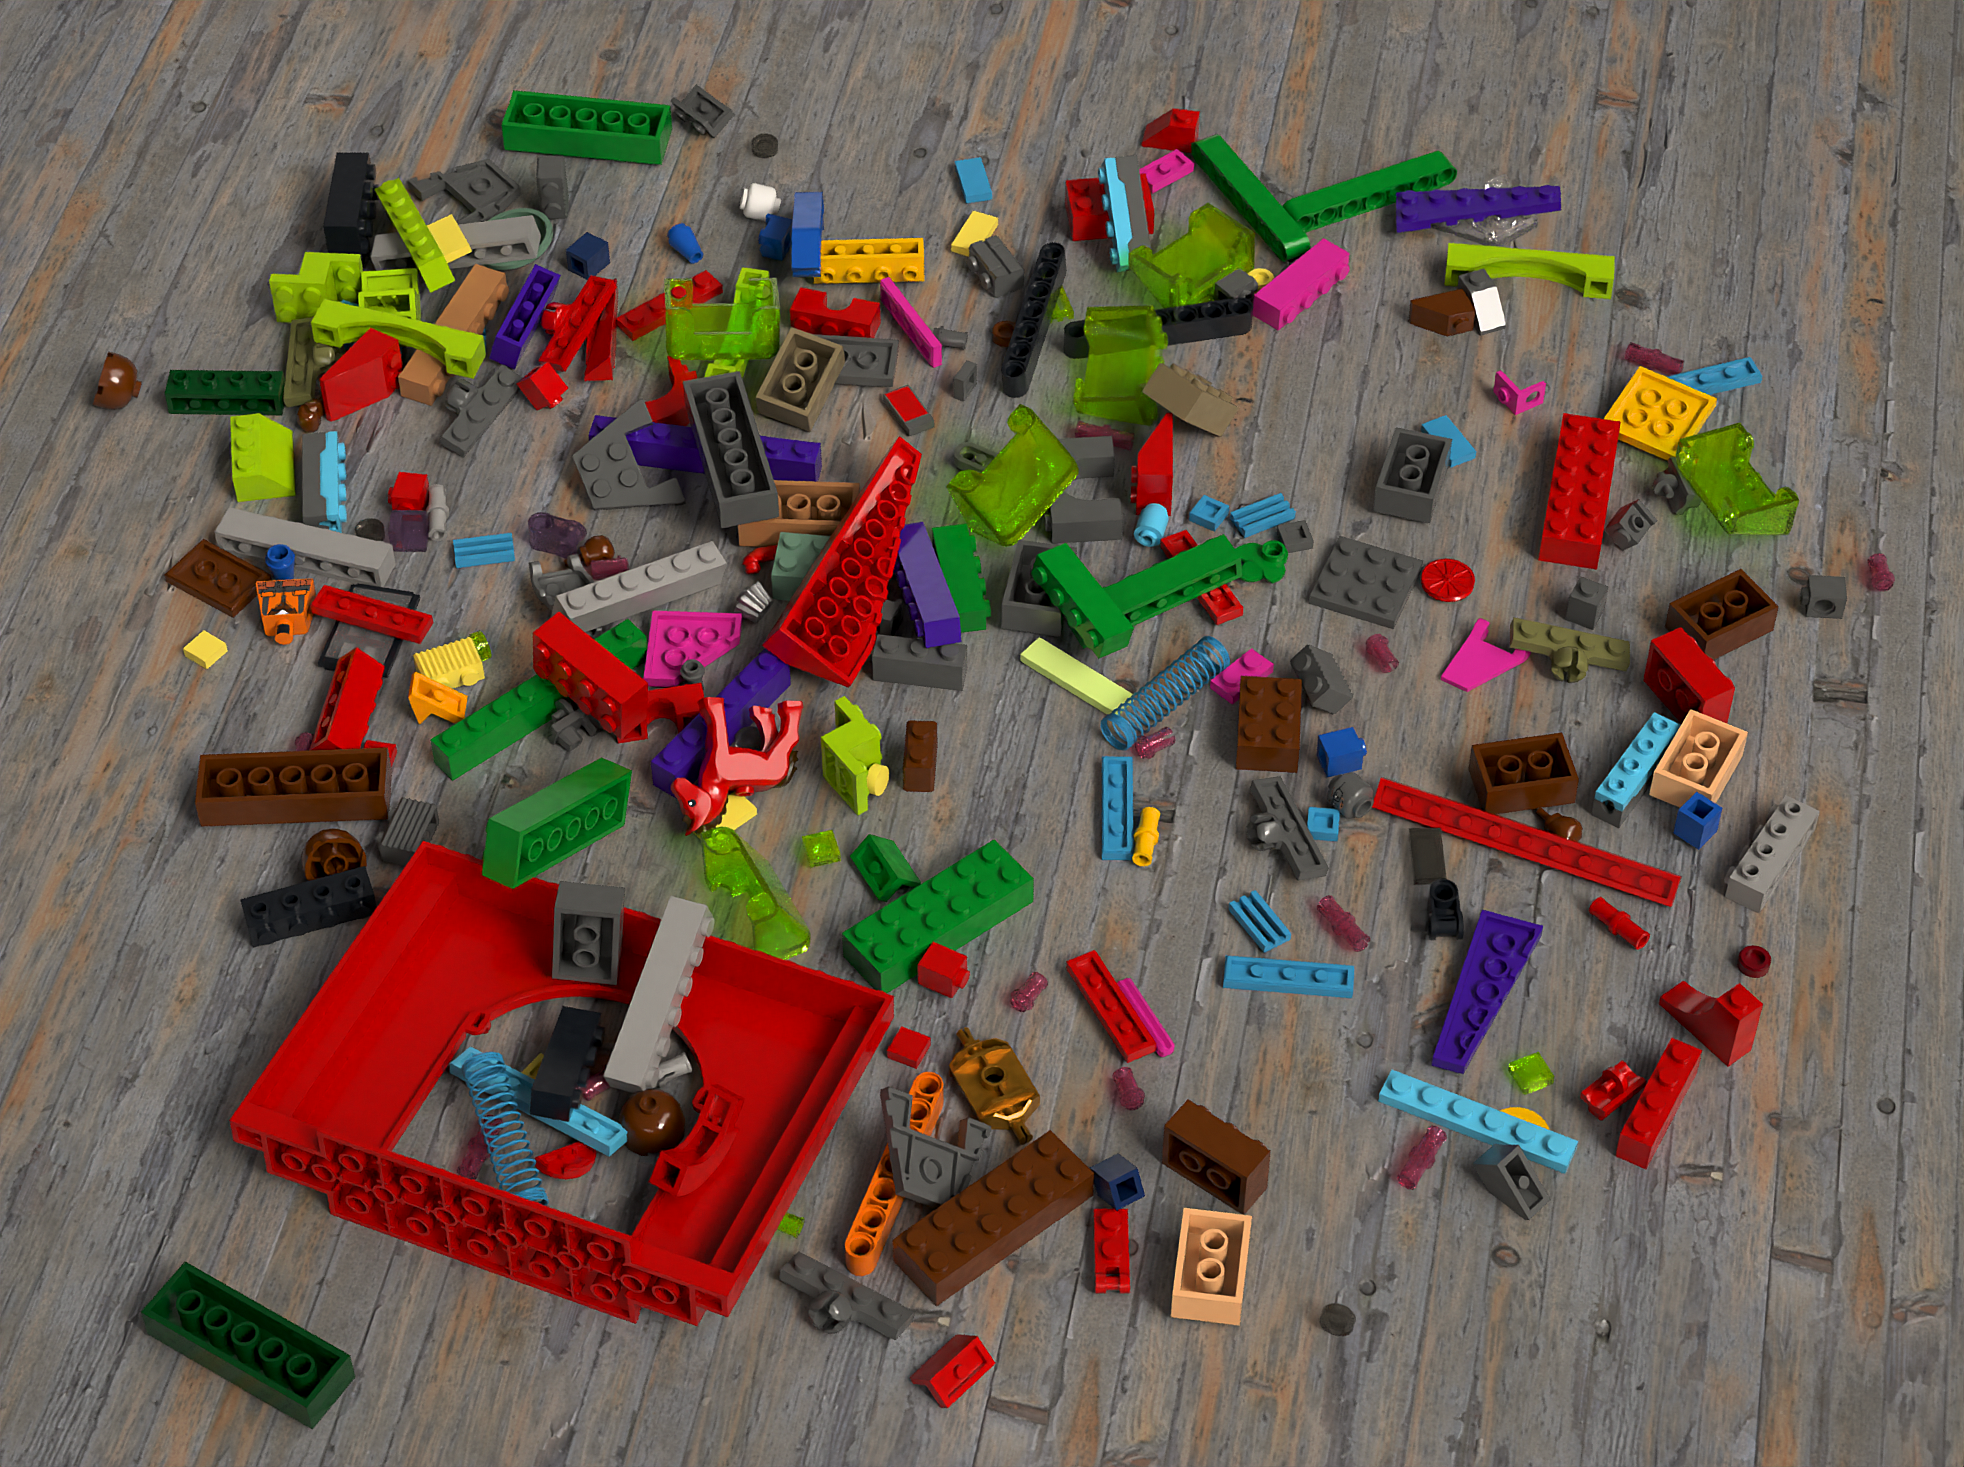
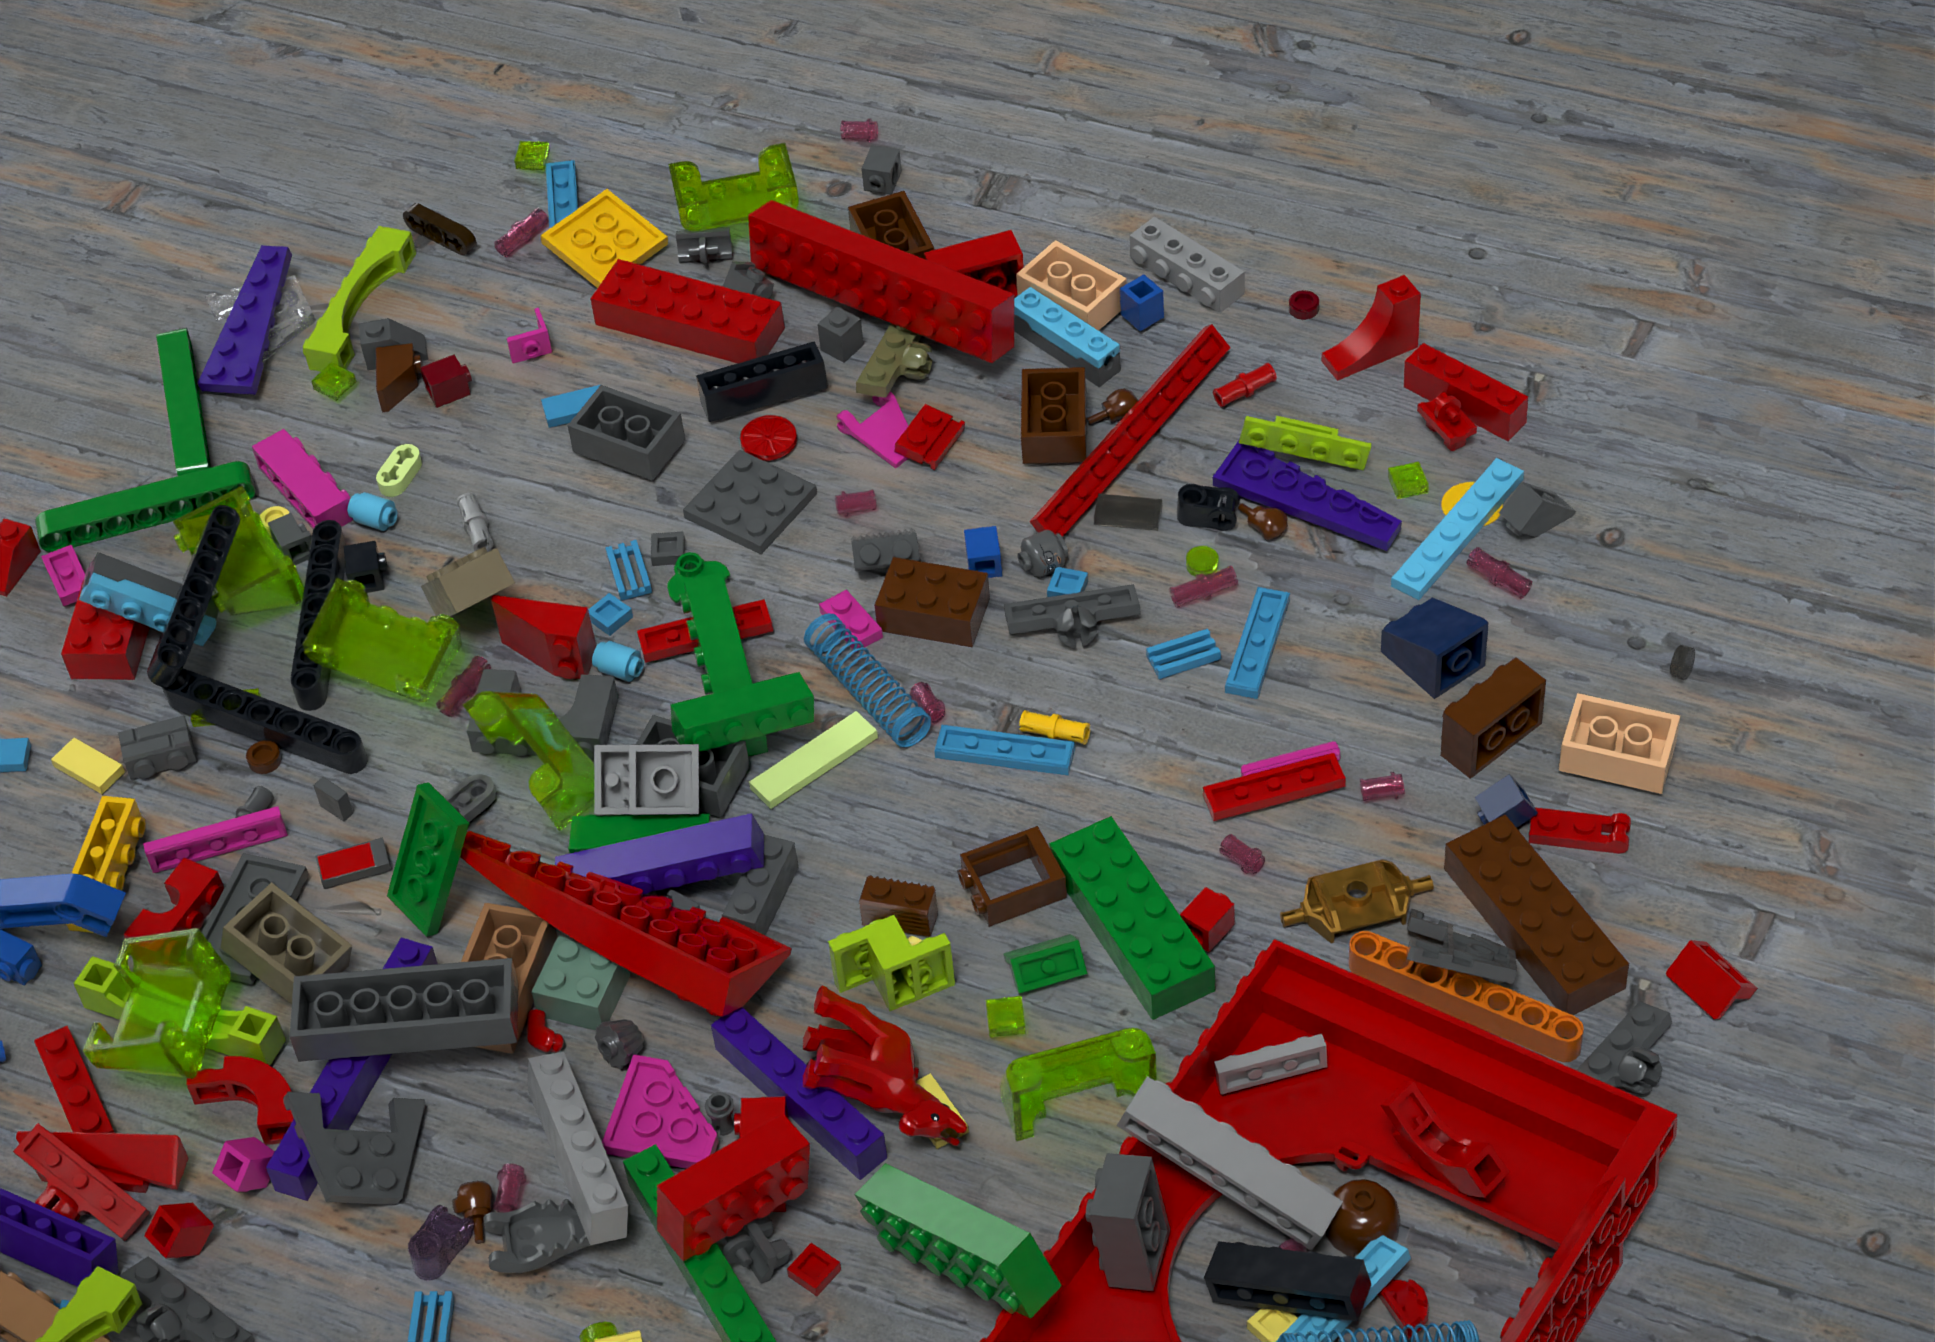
camera: 75 degrees left, 0 degrees up
(560, 765) = (814, 1269): none -> red tile
(603, 402) = (244, 1164): none -> dark pink brick
(783, 1025) = (1271, 1063): none -> light grey plate
(887, 433) = (427, 859): none -> green plate
(957, 804) = (1005, 853): none -> reddish brown window
(999, 550) = (646, 779): none -> light grey slope
(1121, 242) = (193, 596): none -> black beam
(1216, 343) = (365, 565): none -> black brick
(1281, 334) = (372, 511): none -> medium azure brick
(1287, 403) = (474, 521): none -> light grey pin
(1304, 1108) = (1436, 645): none -> dark blue slope
(1338, 343) = (394, 468): none -> yellowish green beam
(1379, 921) = (1202, 560): none -> clear neon green tile
(1427, 277) = (333, 381): none -> clear neon green plate
(1443, 963) = (1268, 521): none -> reddish brown piece
(1447, 347) = (446, 380): none -> dark red brick
(1479, 693) = (929, 436): none -> red plate
(1504, 555) = (761, 381): none -> black brick
(1552, 977) = (1305, 441): none -> lime bracket
(1636, 302) = (439, 229): none -> dark brown beam
(1642, 609) = (882, 281): none -> red brick
(1756, 344) = (532, 155): none -> clear neon green plate

